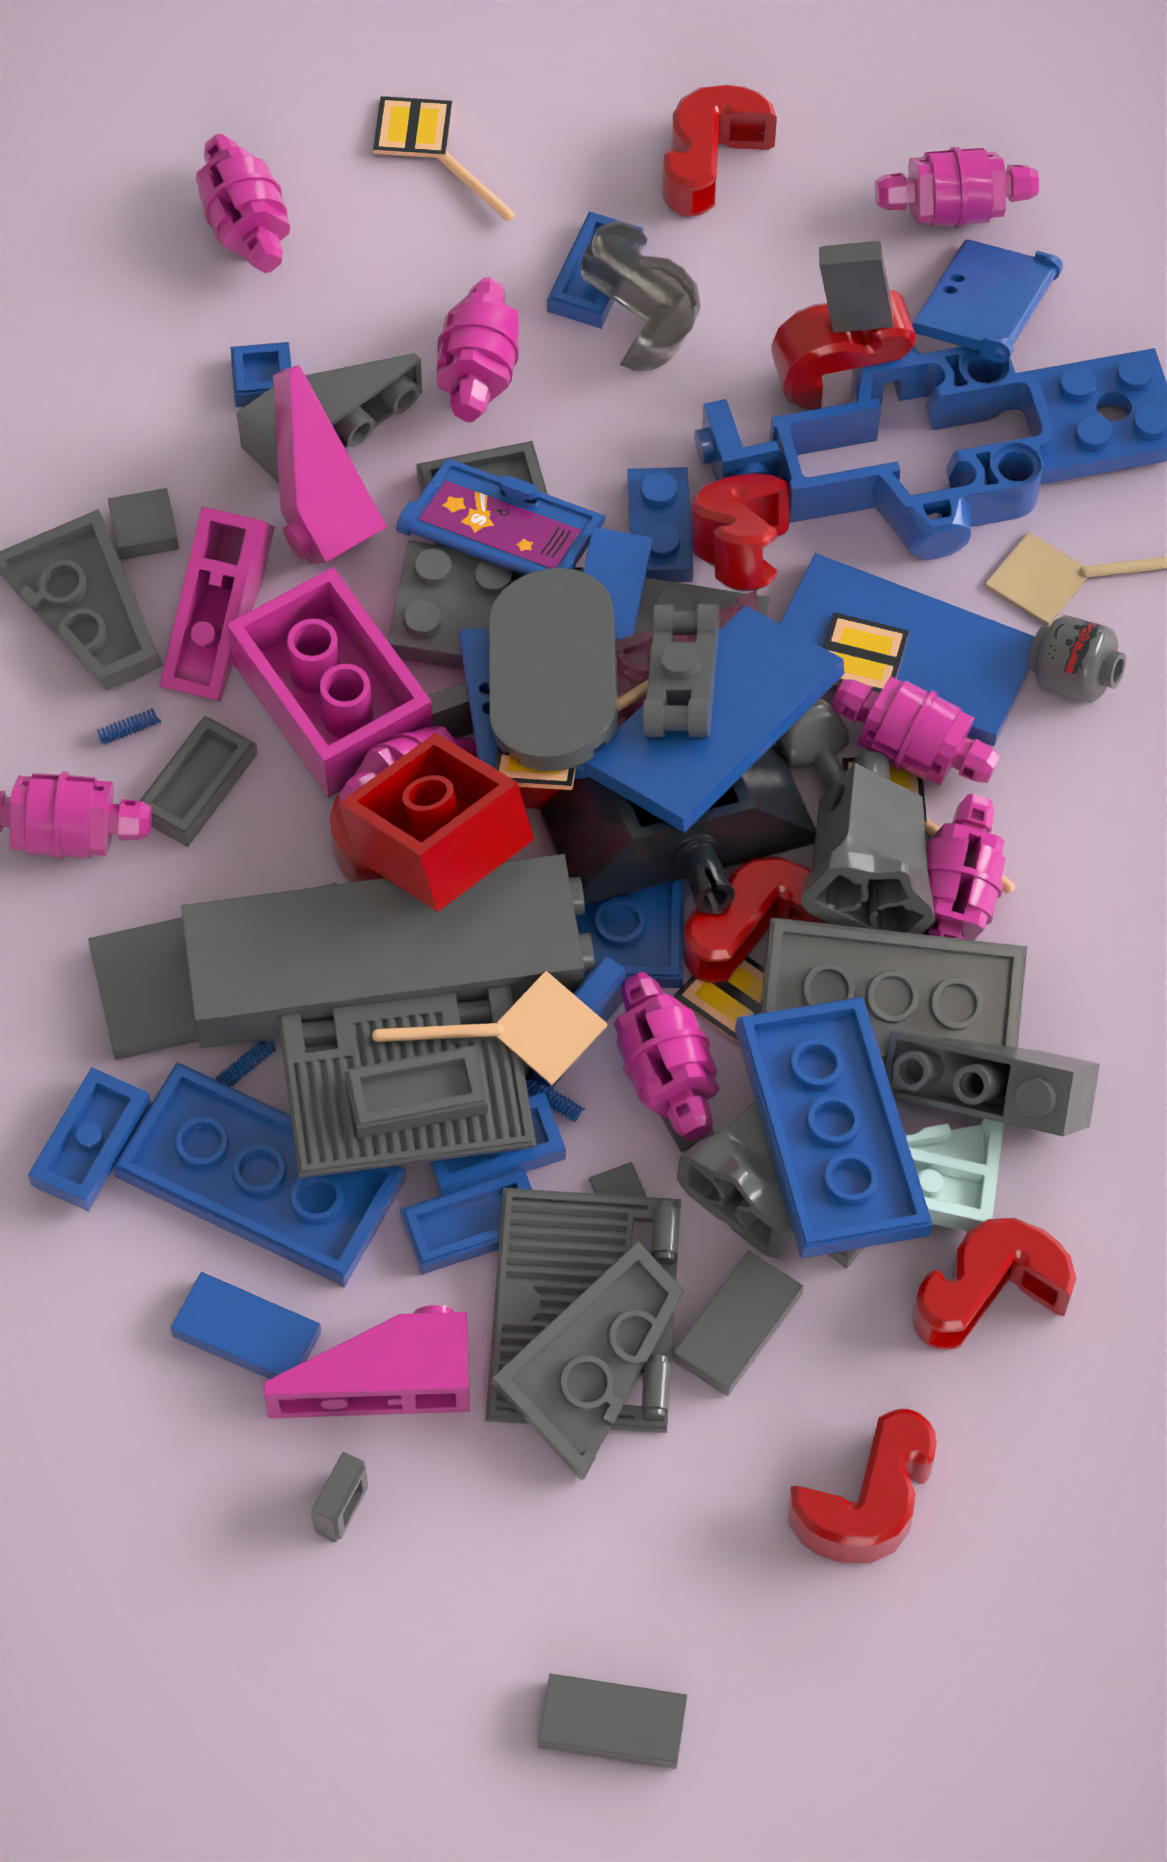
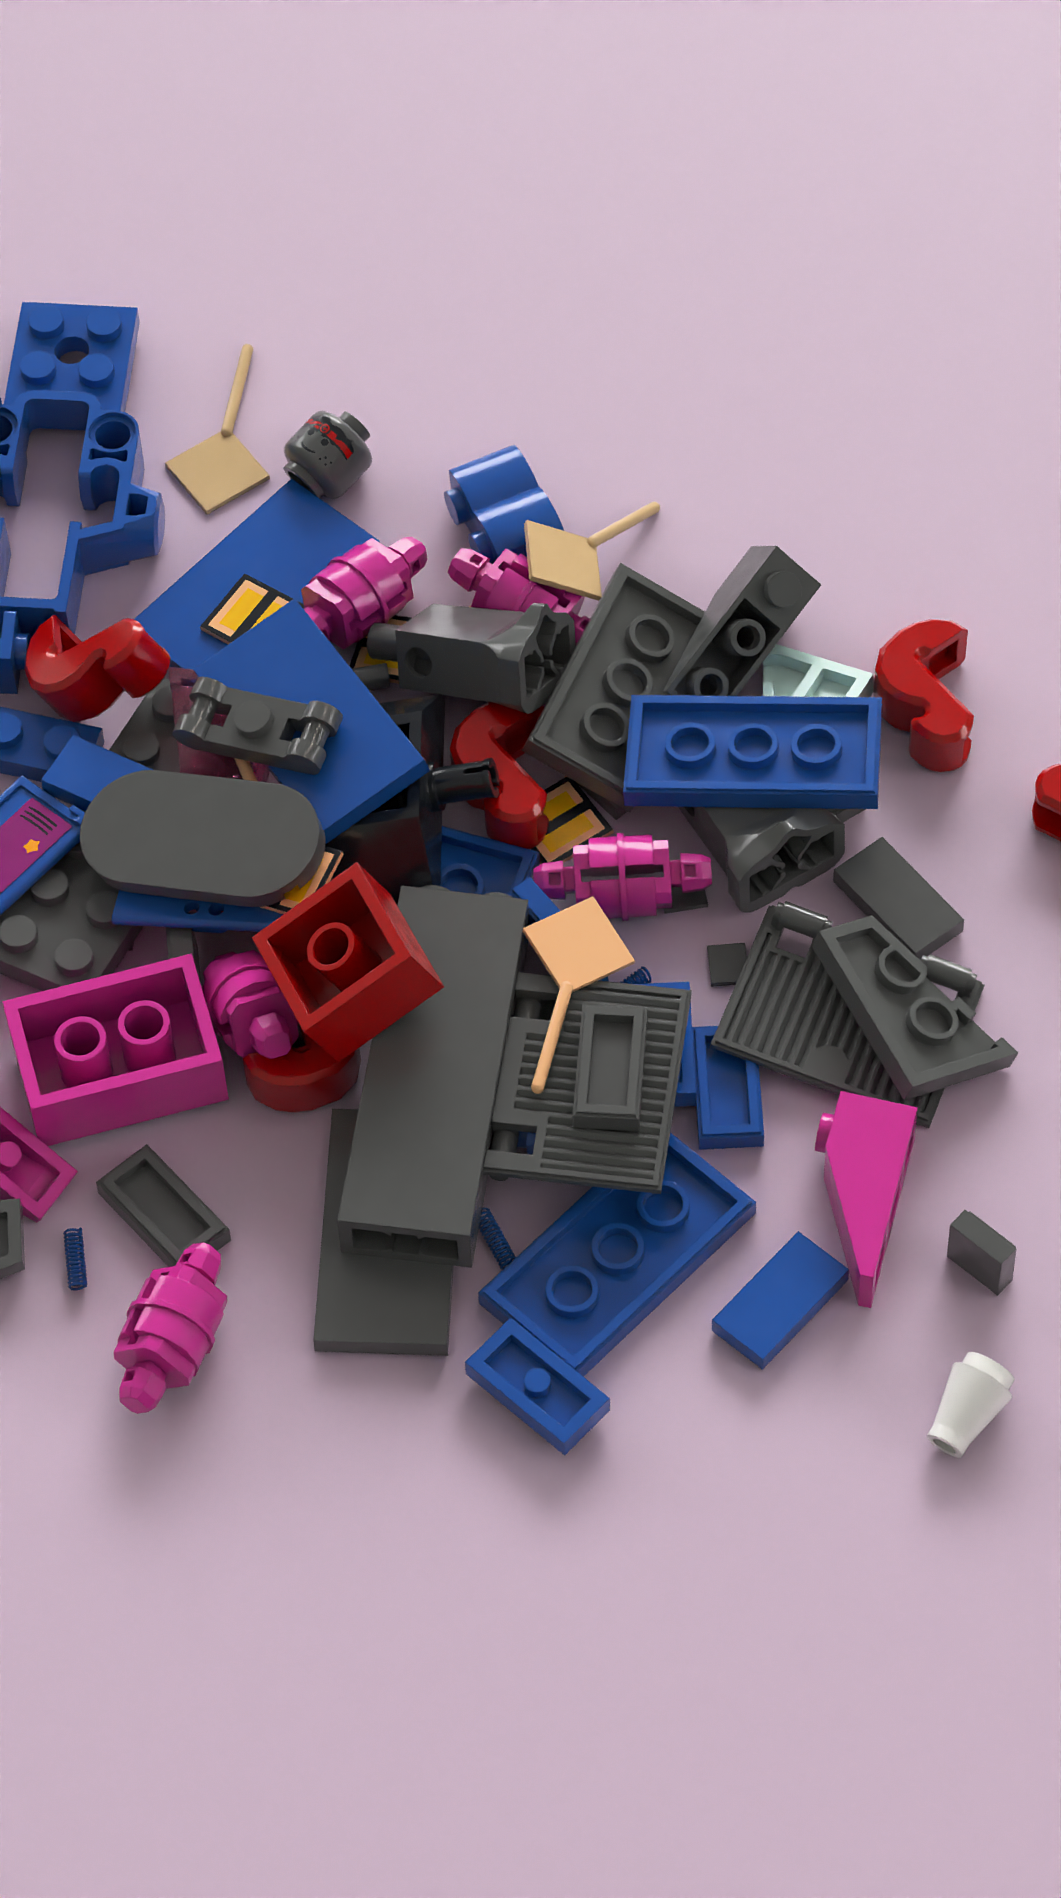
camera: 70 degrees left, 5 degrees down
(173, 1528) = (970, 1401): none -> white cone
(1011, 895) = (569, 559): none -> tan piece
(1069, 834) = (496, 499): none -> blue brick

